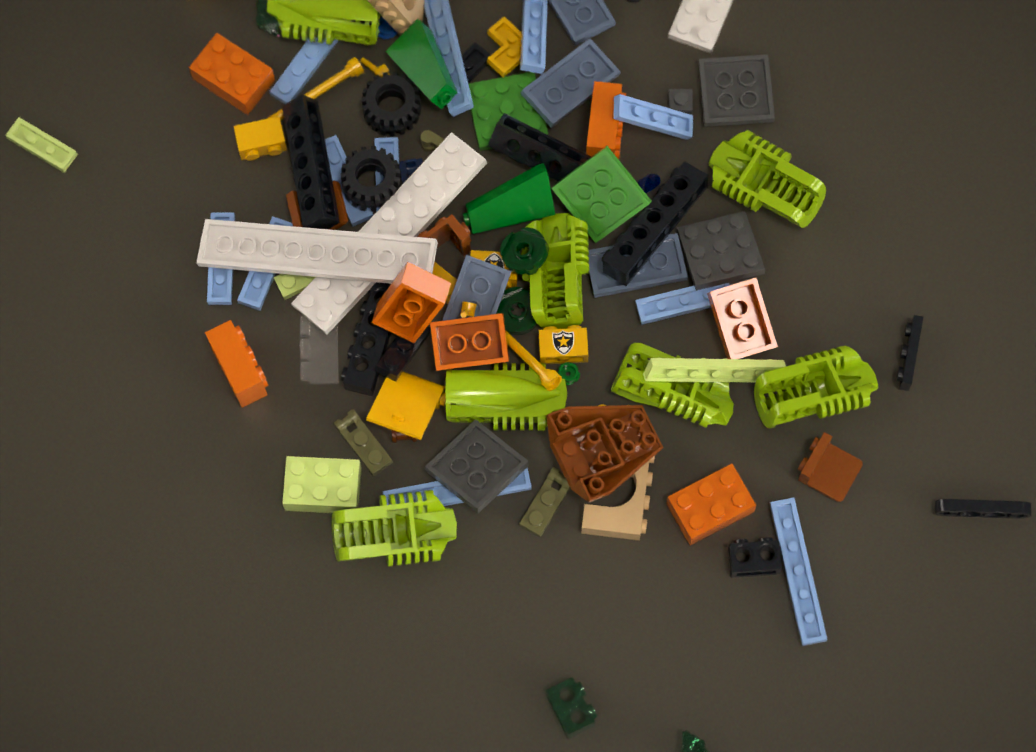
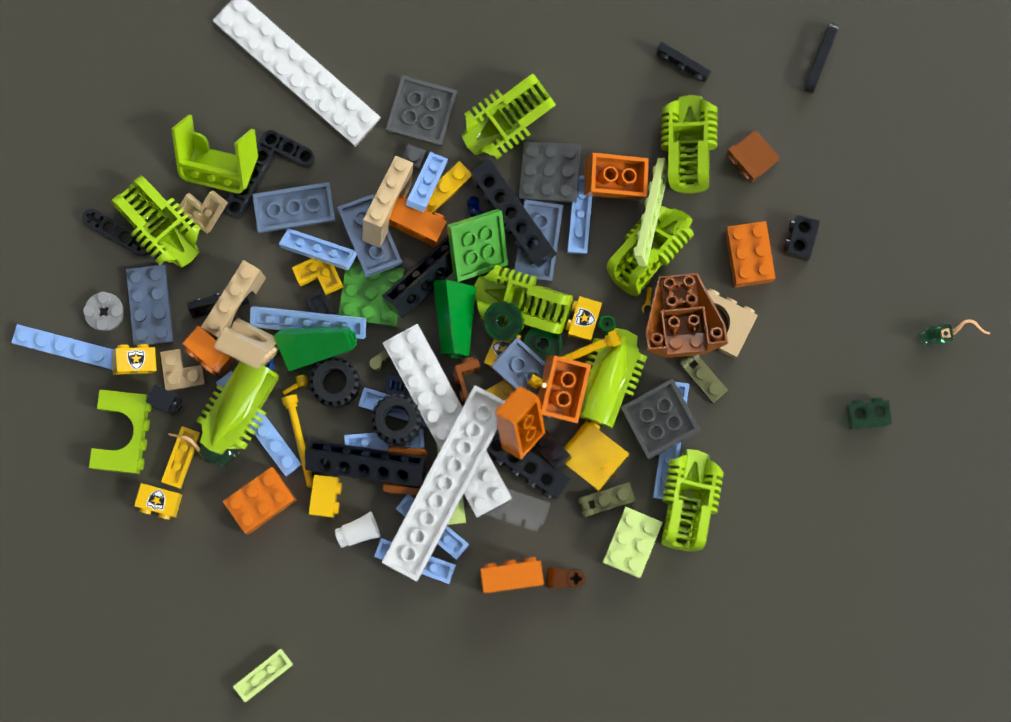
camera: 70 degrees left, 10 degrees up
(234, 186) = (358, 531): none -> white plant
(256, 423) = (562, 578): none -> reddish brown piece
(588, 70) = (395, 183): none -> tan arch
(657, 146) = (448, 186): none -> yellow plate
(798, 572) = (822, 210): light blue plate -> none

